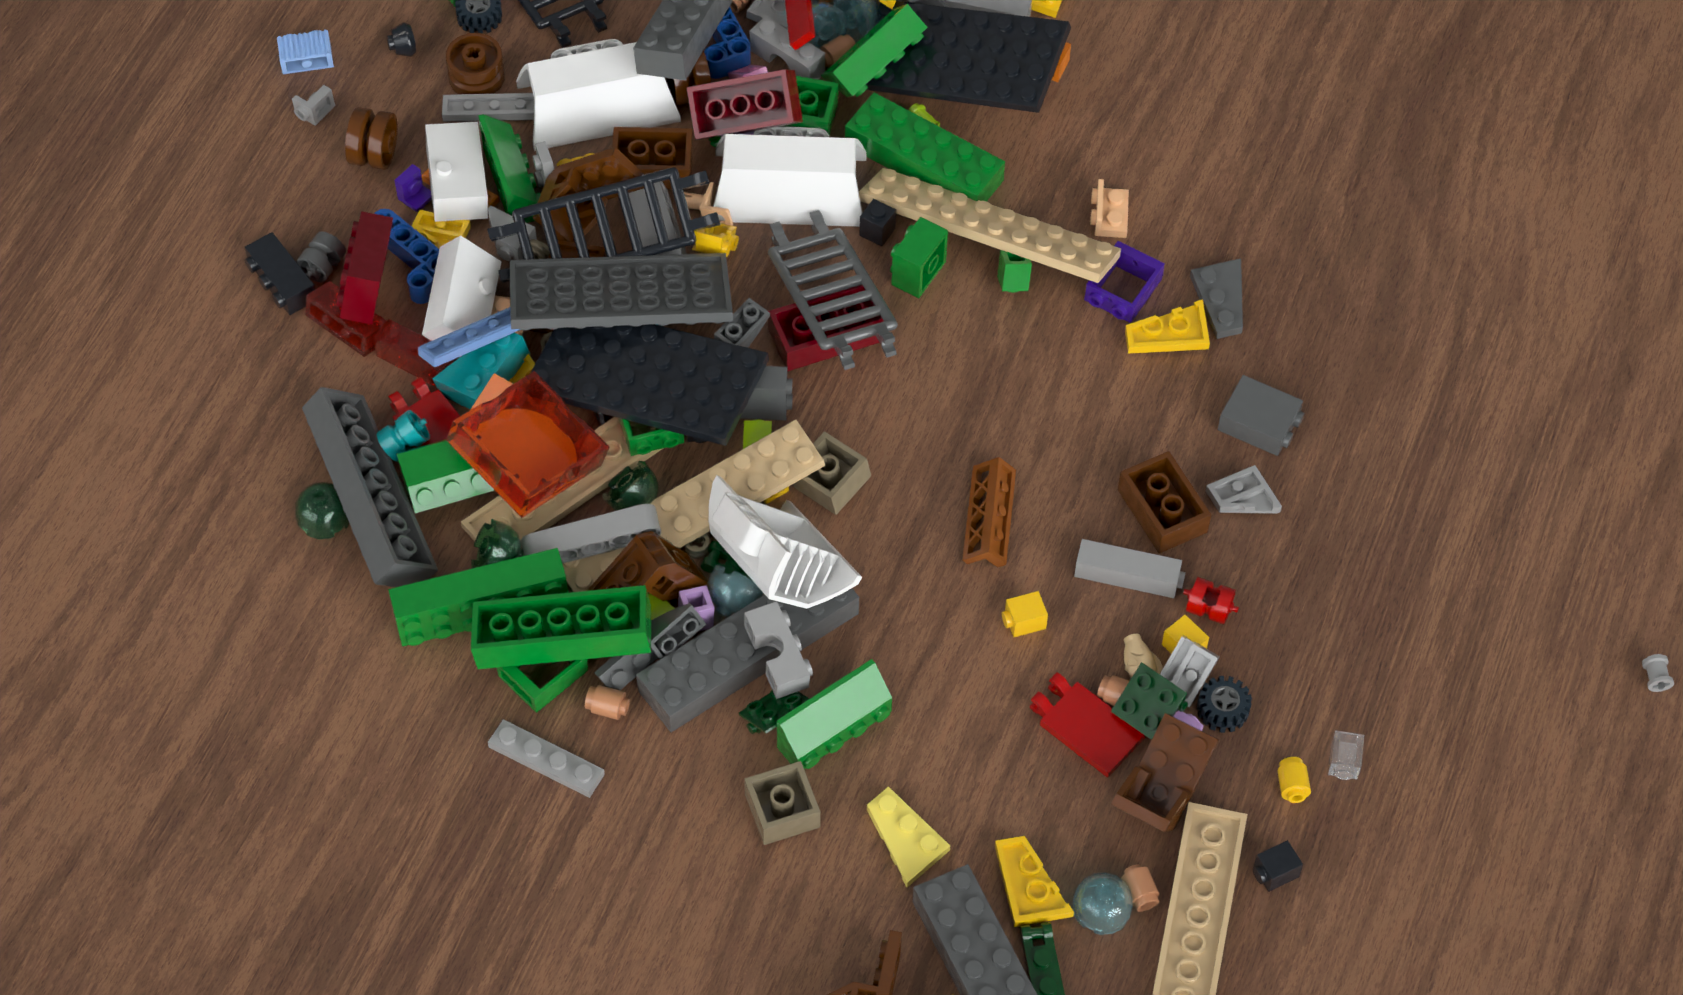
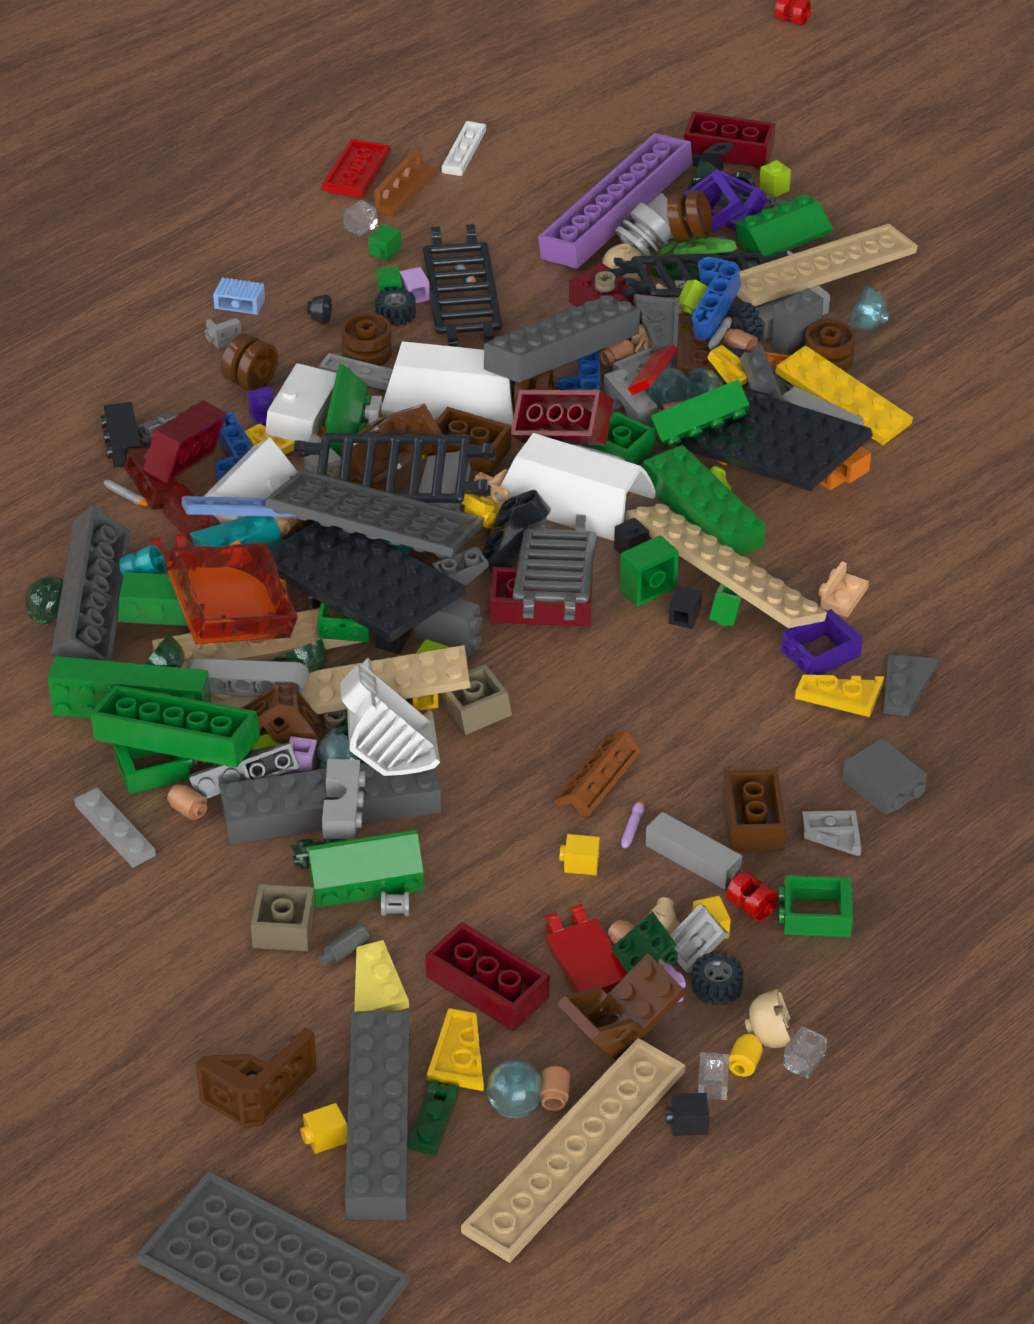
camera: 25 degrees right, 15 degrees down
(324, 345) = (126, 493): none -> light grey piece
(750, 238) = (510, 523): none -> black beam
(854, 807) = (344, 945): none -> dark grey cylinder
(877, 741) = (394, 898): none -> light grey bush
(971, 285) = (685, 607): none -> black brick
(1014, 790) = (487, 976): none -> dark red brick
(1051, 557) = (637, 812): none -> lavender piece
(1277, 814) = (713, 1075): none -> clear brick
(1298, 574) = (816, 888): none -> green window
(1300, 735) = (770, 1020): none -> tan cylinder

